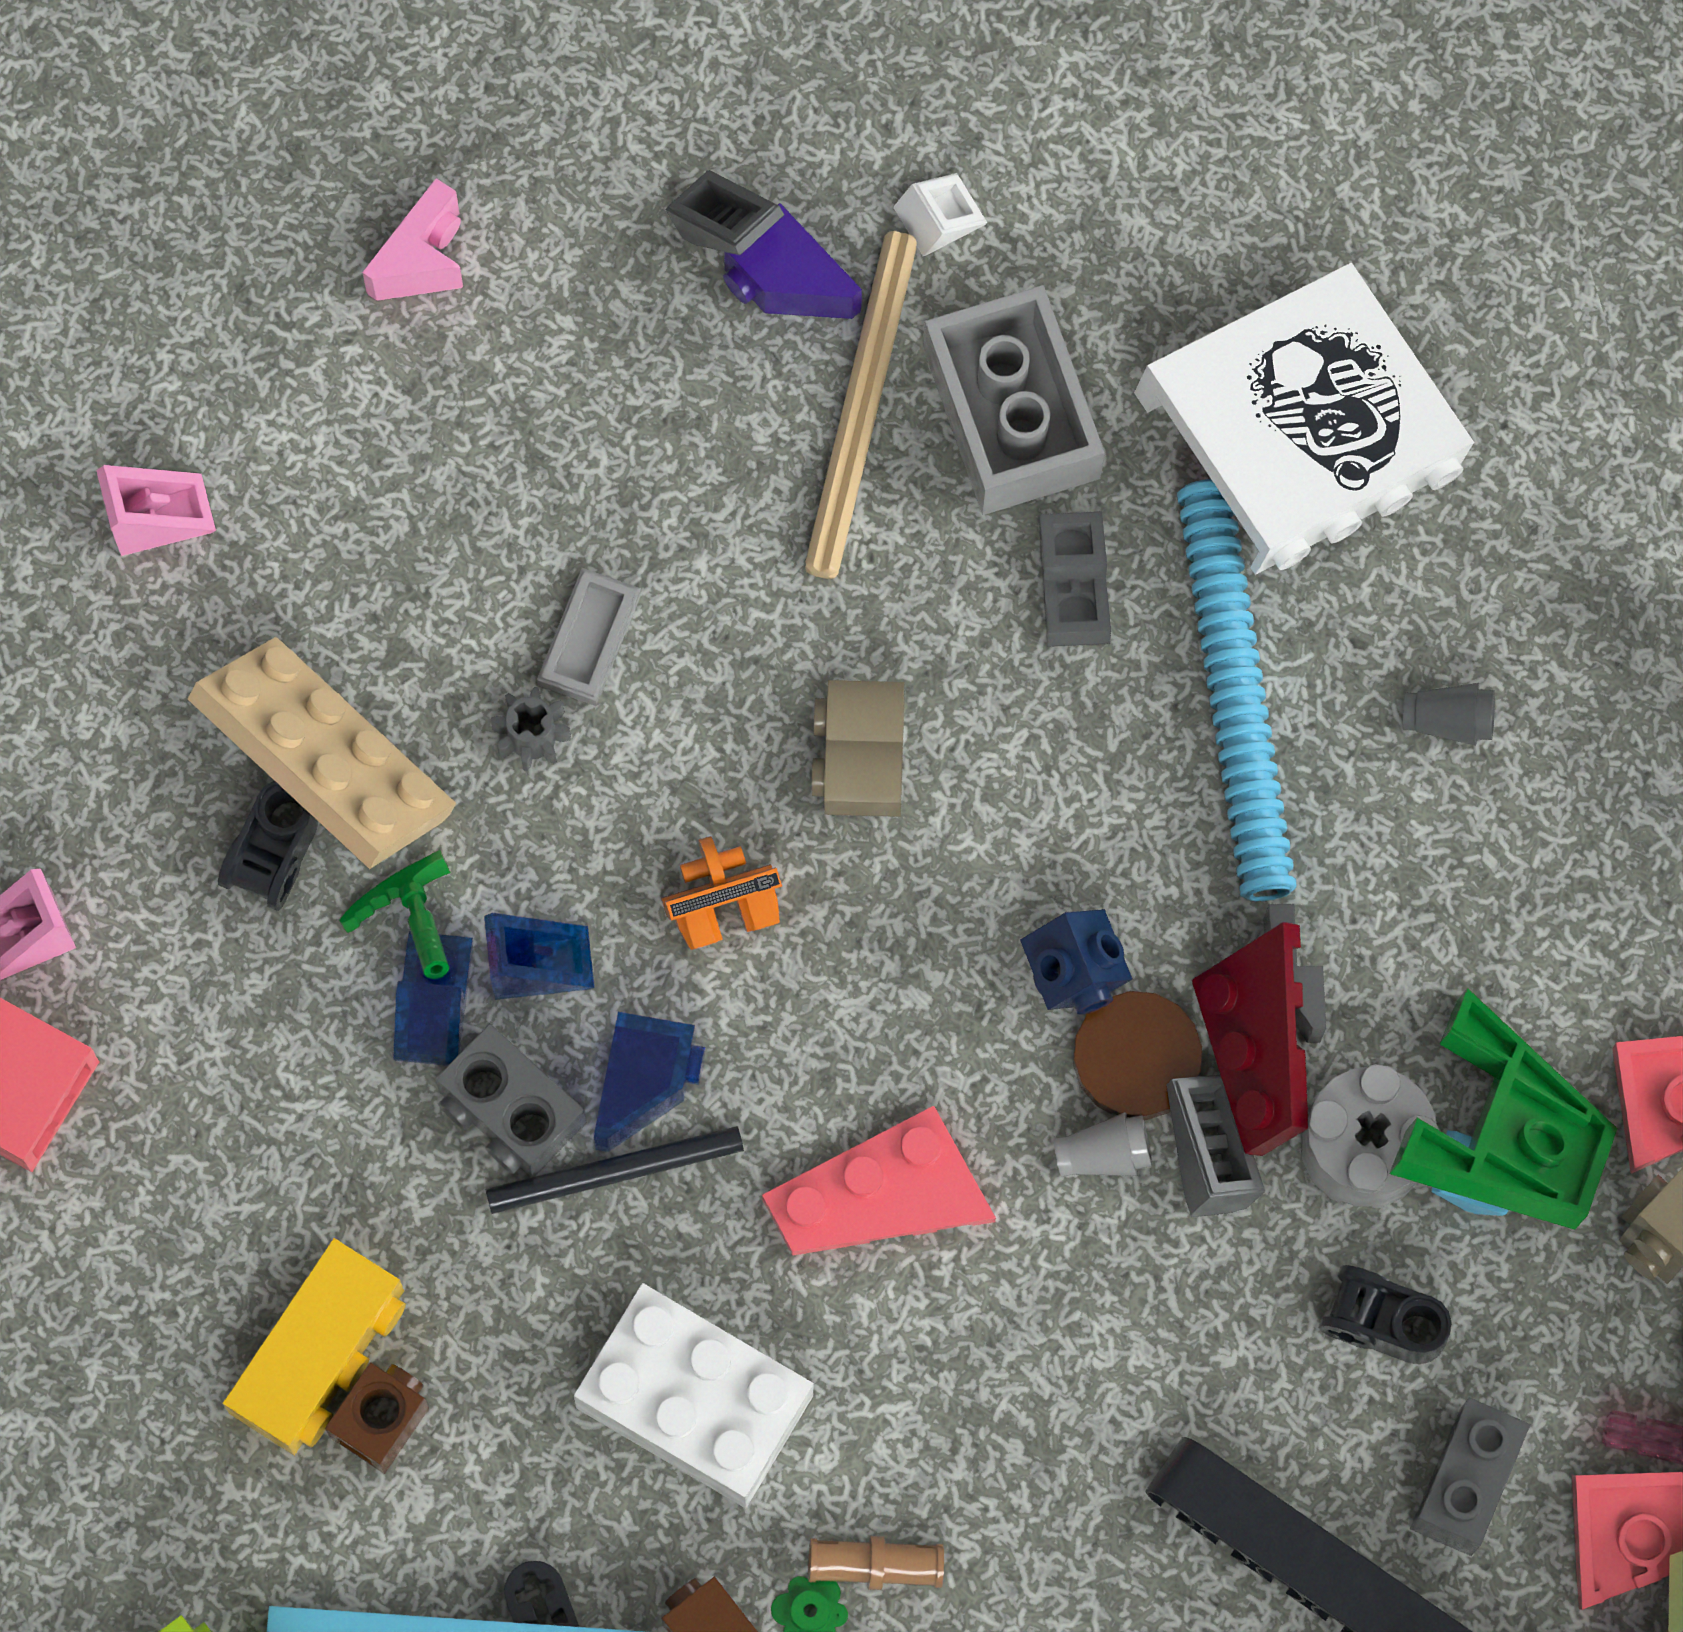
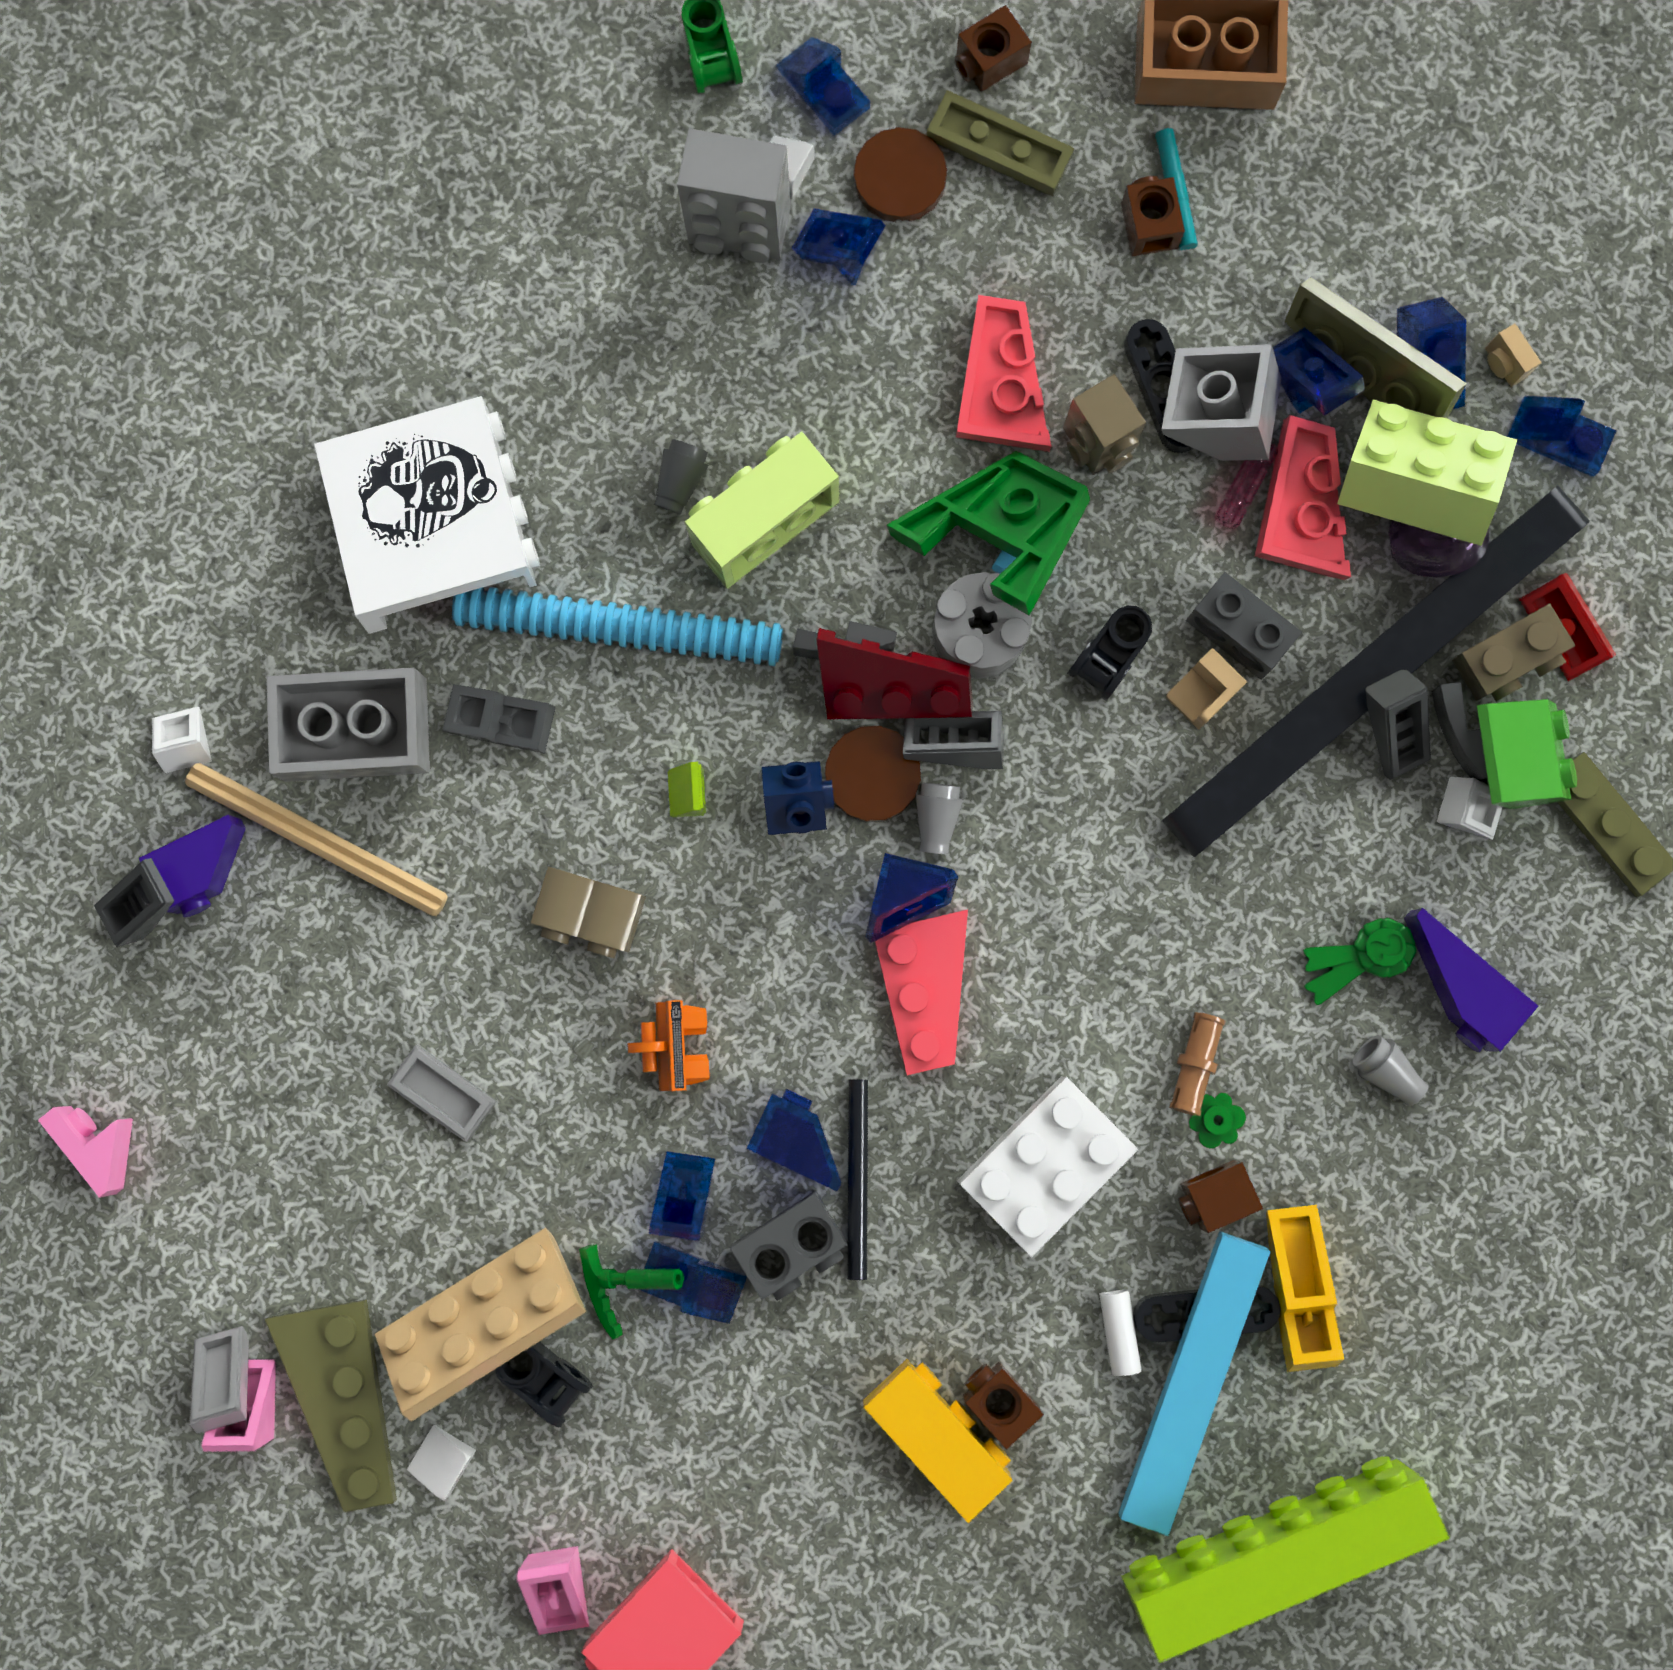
camera: 70 degrees left, 10 degrees up
(140, 757) = (440, 1462): none -> white slope
(180, 469) = (219, 1380): none -> light grey tile
(198, 613) = (339, 1391): none -> olive wing
(504, 1550) = (1120, 1332): none -> white axle
(525, 743) = (492, 1149): dark grey gear -> none
(992, 1129) = (907, 893): none -> clear blue slope
(1050, 832) = (687, 790): none -> lime slope
(1372, 1453) = (1206, 688): none -> tan panel
(1433, 820) = (763, 508): none -> yellowish green brick

